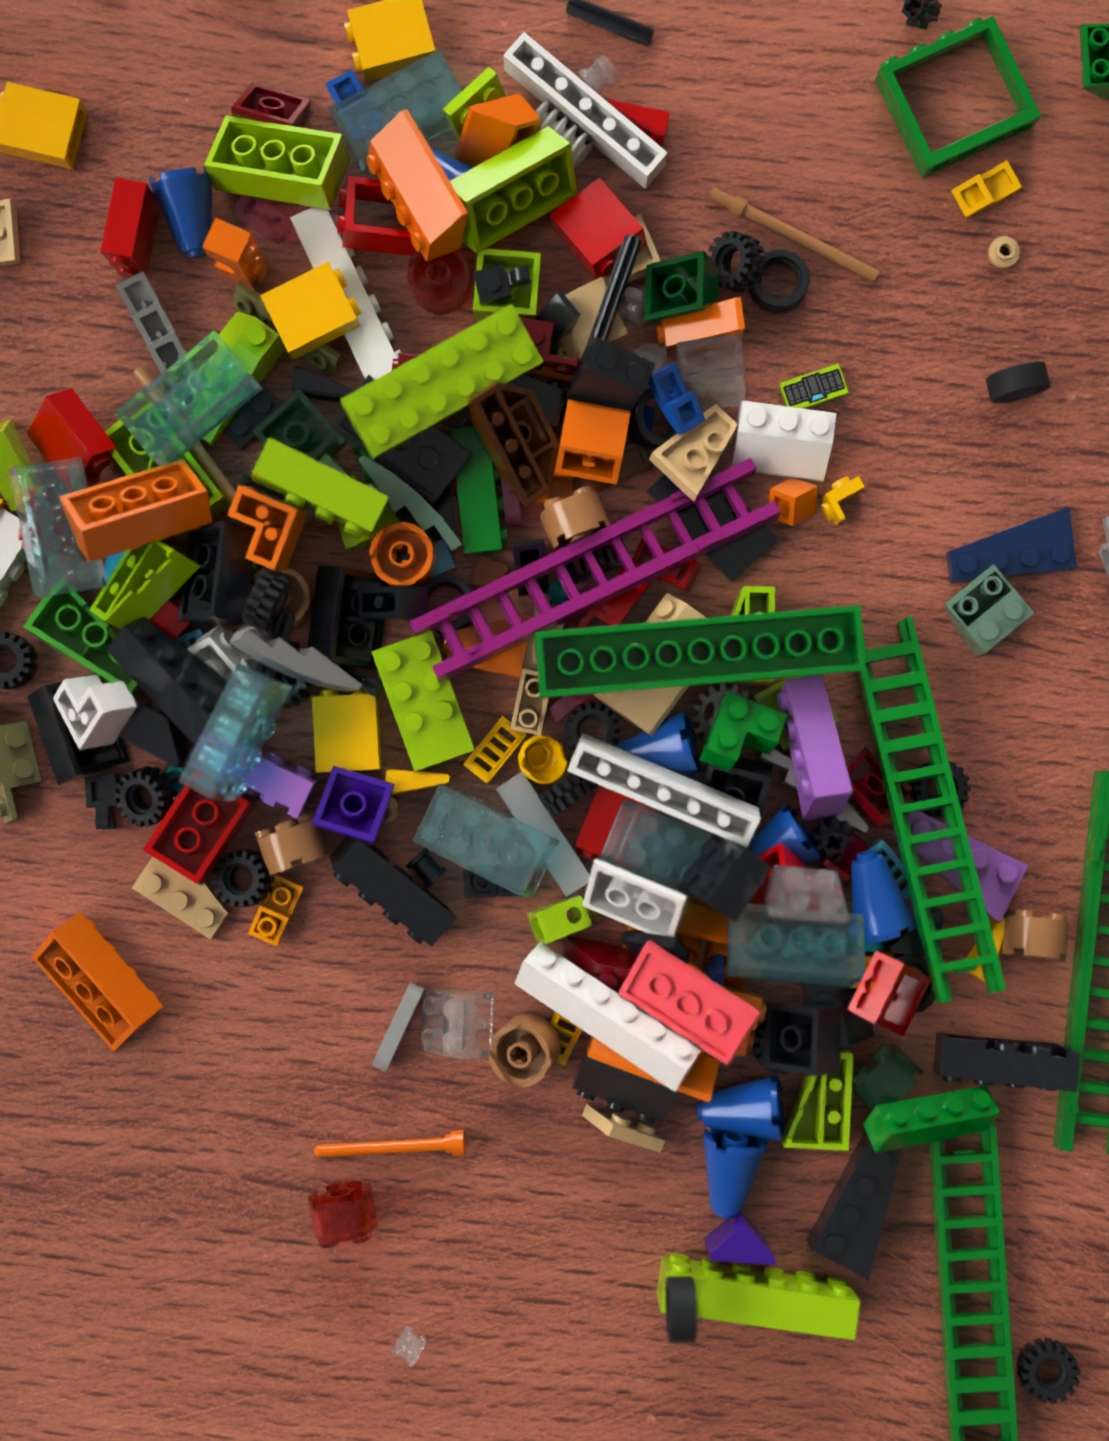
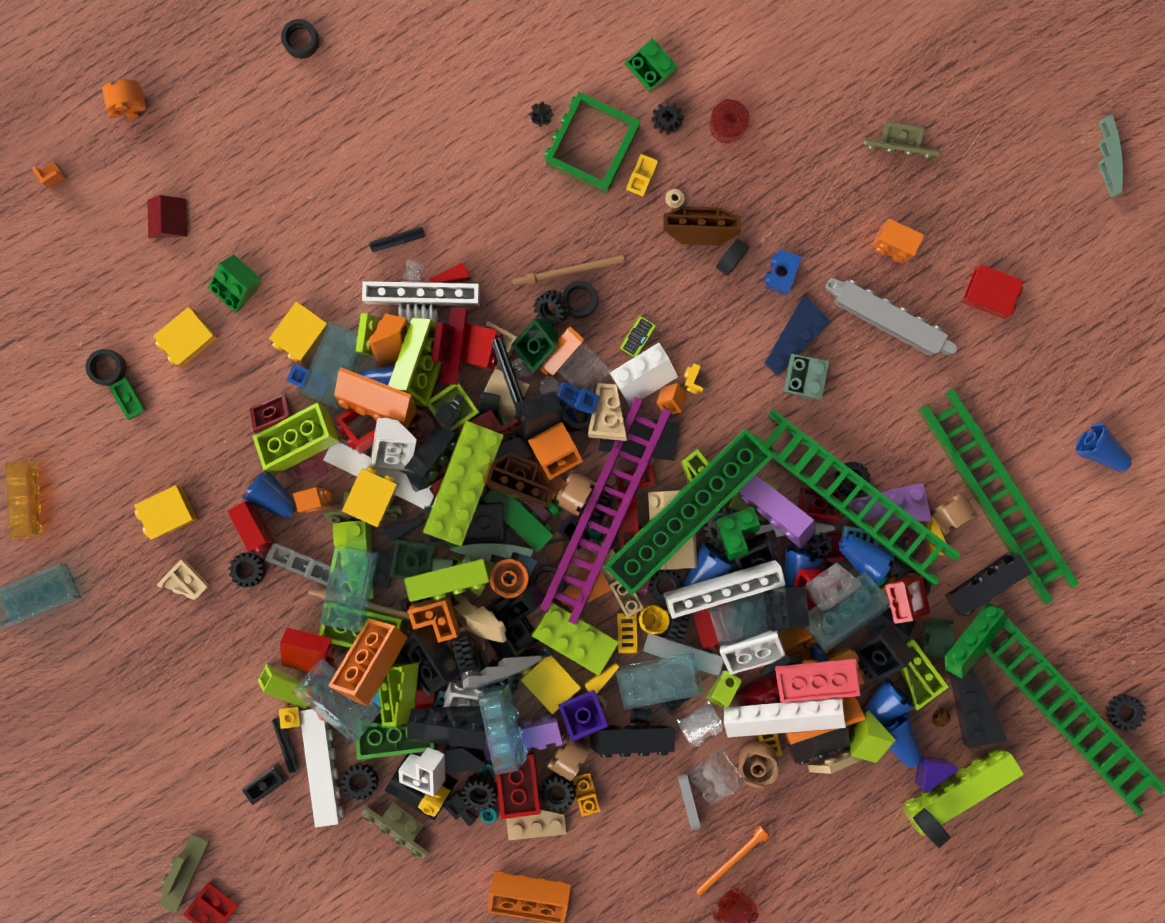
camera: 30 degrees left, 0 degrees up
(69, 759) = (431, 805): none -> yellow bracket
(70, 267) = (235, 569): none -> black tyre
(128, 841) = (489, 819): none -> teal plate
(318, 573) = (478, 620): none -> tan slope
(390, 264) = (392, 445): none -> white slope
(425, 318) = (430, 458): none -> black slope
(493, 939) = (700, 724): none -> clear slope
(530, 517) = (554, 508): none -> green plate
(567, 198) = (449, 345): none -> dark red bracket
(693, 1135) = (870, 739): none -> lime slope
(806, 1183) = (941, 717): none -> reddish brown plate
(960, 940) = (913, 535): none -> beam
(1010, 312) = (701, 225): none -> reddish brown wedge
(1083, 450) = (790, 264): none -> blue brick
(1089, 141) = (660, 120): none -> black gear

